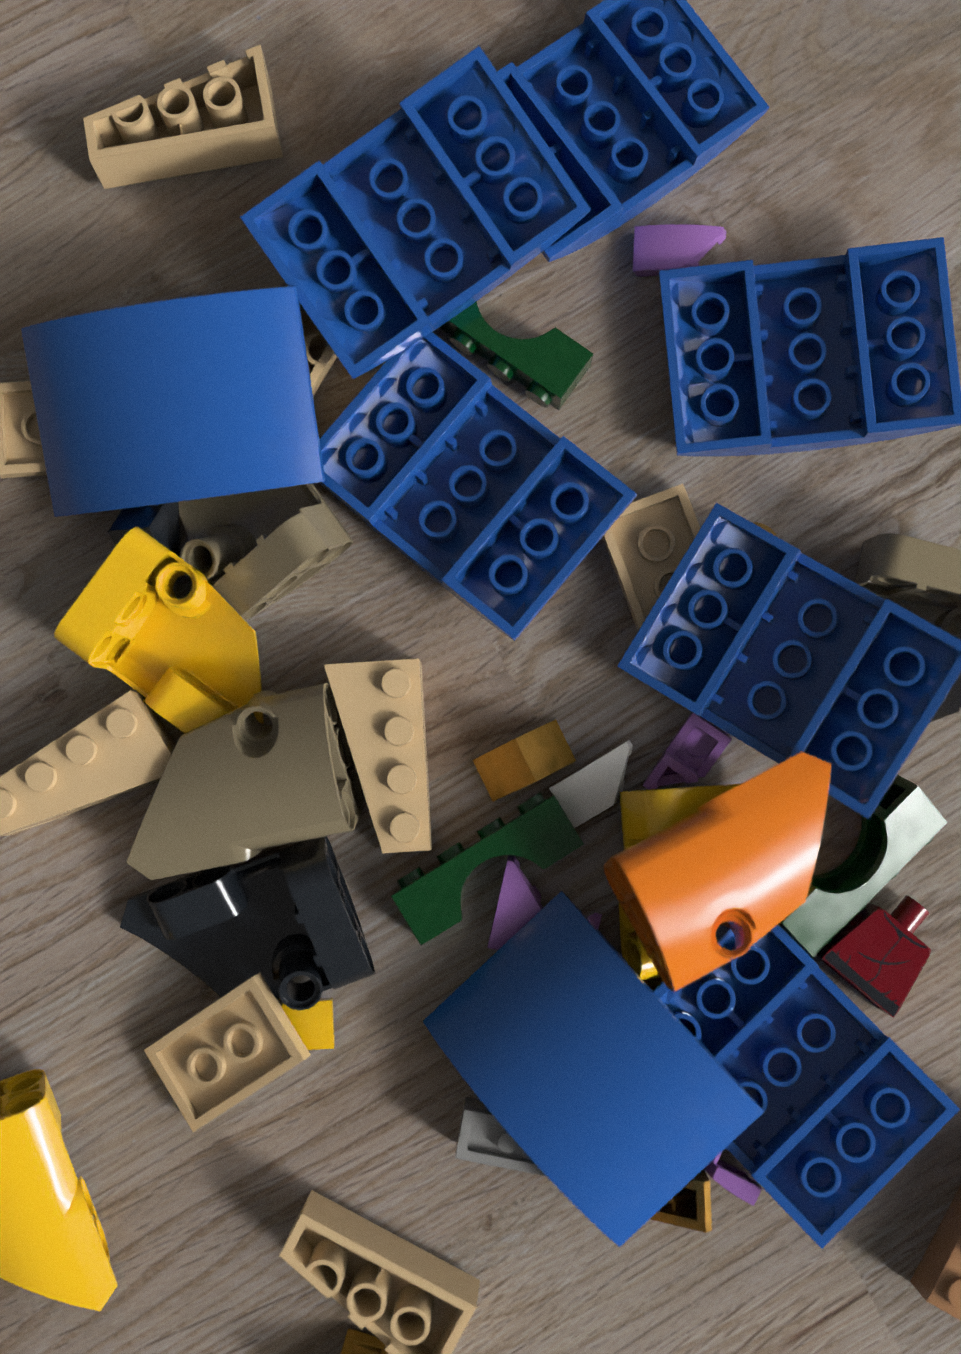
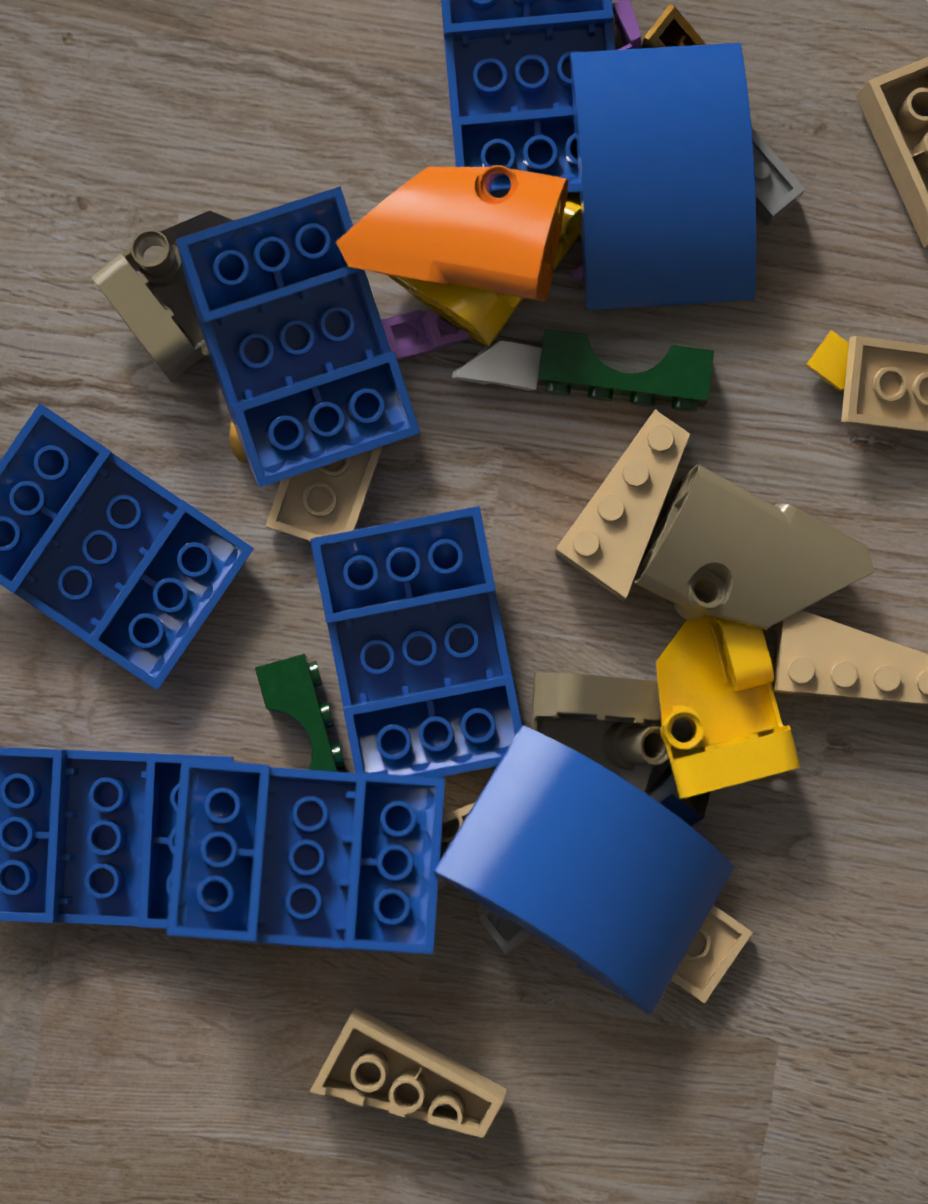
camera: 145 degrees left, 0 degrees up
(265, 917) = (805, 457): black panel -> none
(515, 906) = (625, 326): medium lavender slope -> none
(524, 760) = (537, 422): pearl gold slope -> none
(672, 246) = (129, 704): medium lavender slope -> none
(880, 953) = (400, 93): dark red torso -> none
(887, 842) = (330, 162): arch -> none

